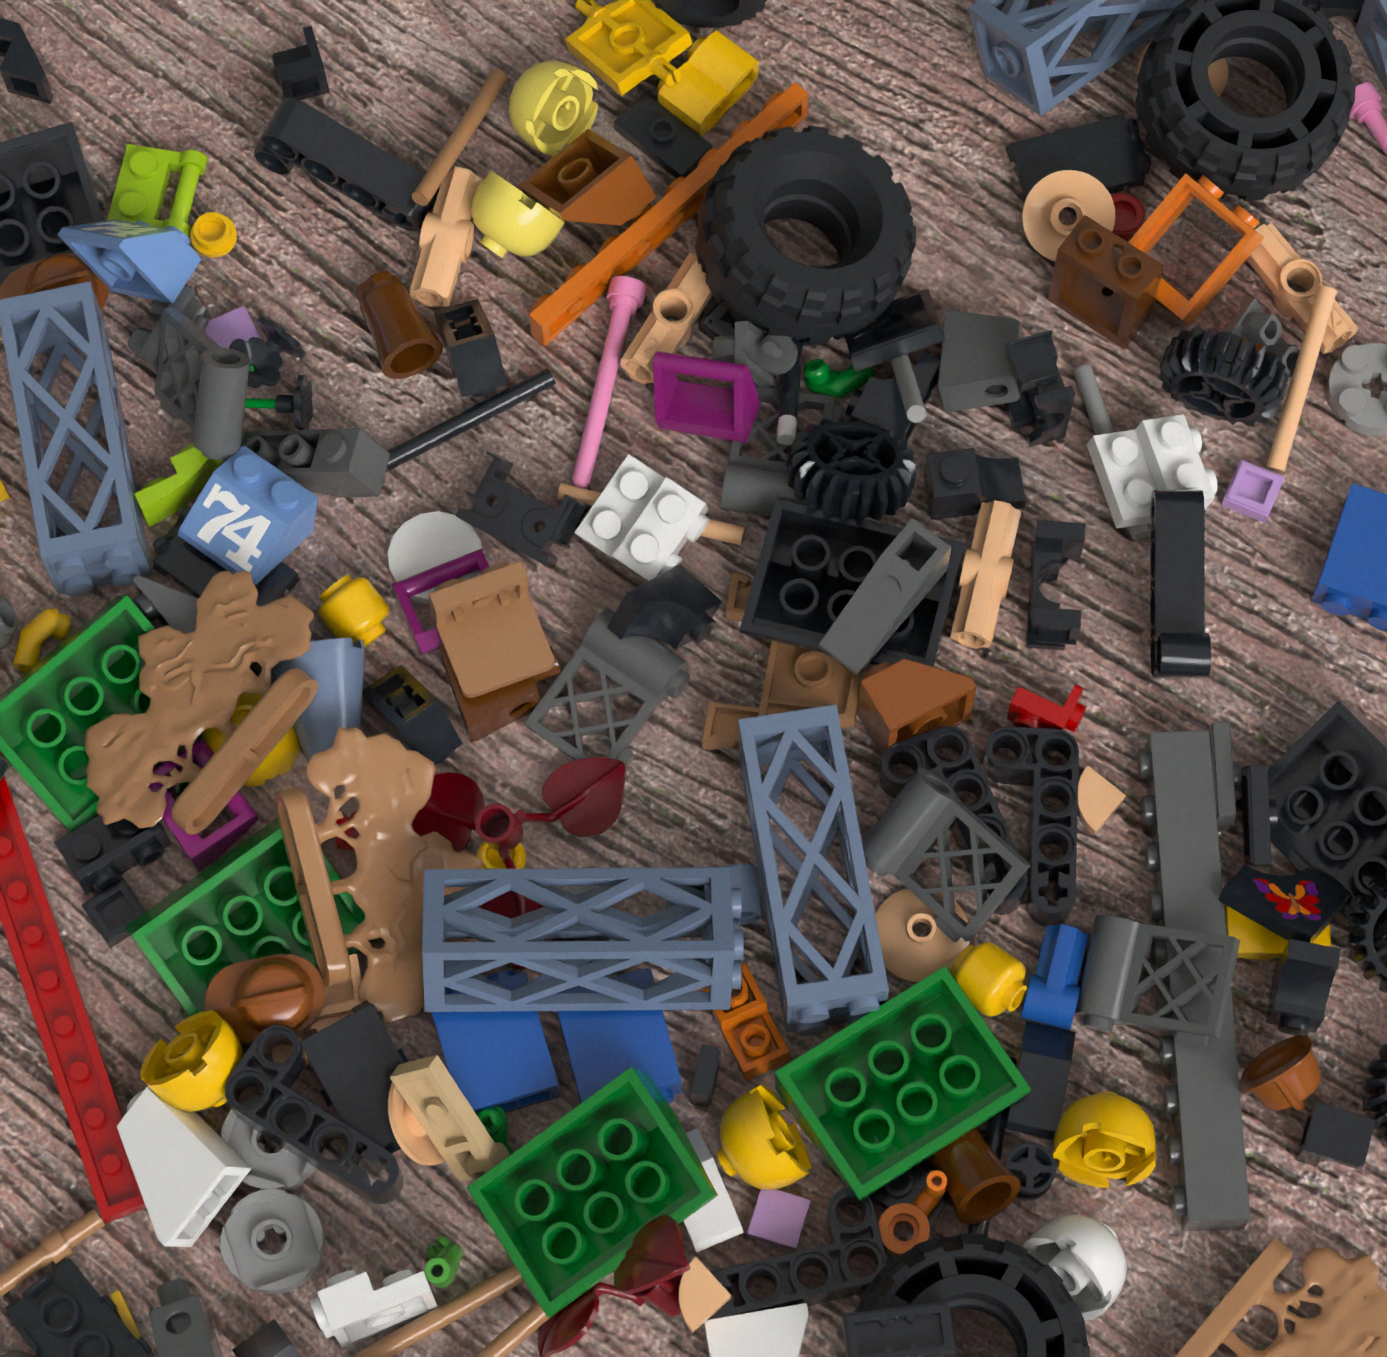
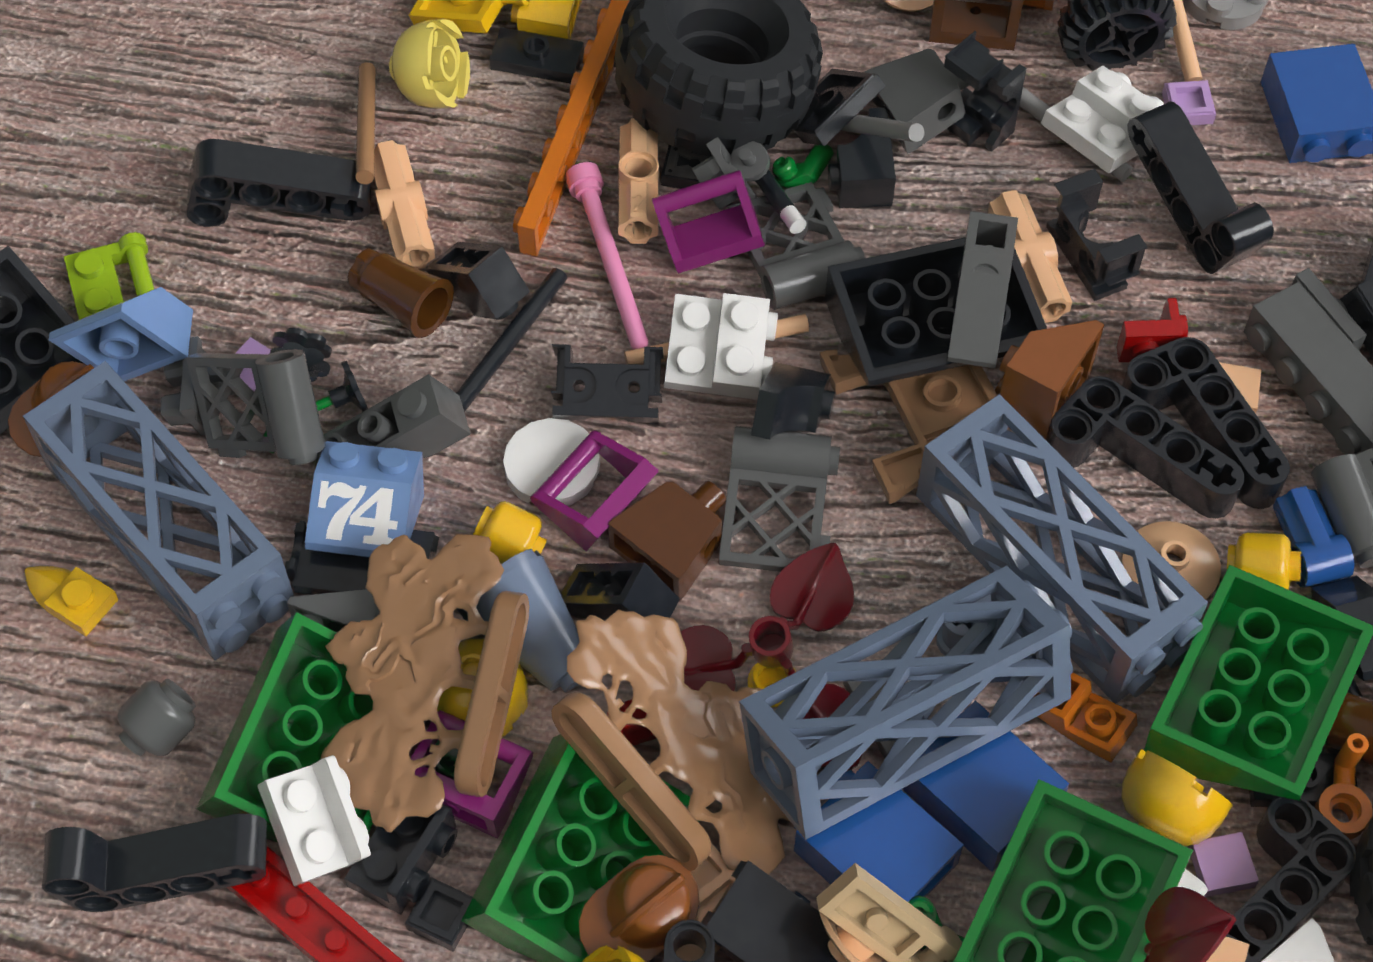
camera: 30 degrees left, 10 degrees down
(34, 633) = (215, 700): yellow arm -> none
(49, 783) = (315, 820): none -> white bracket
(168, 495) = (284, 492): lime slope -> none
(213, 235) = (190, 290): yellow plate -> none
(301, 69) = (188, 130): black panel -> none
(490, 629) = (652, 482): medium nougat bracket -> none
(512, 219) = (452, 161): light yellow cylinder -> none
(590, 183) = (508, 97): dark orange slope -> none
(705, 1075) = (1079, 770): black tile -> none
(851, 469) = (875, 216): black gear -> none
(913, 828) = (1118, 468): dark grey piece -> none
(963, 480) = (963, 189): black arch -> none

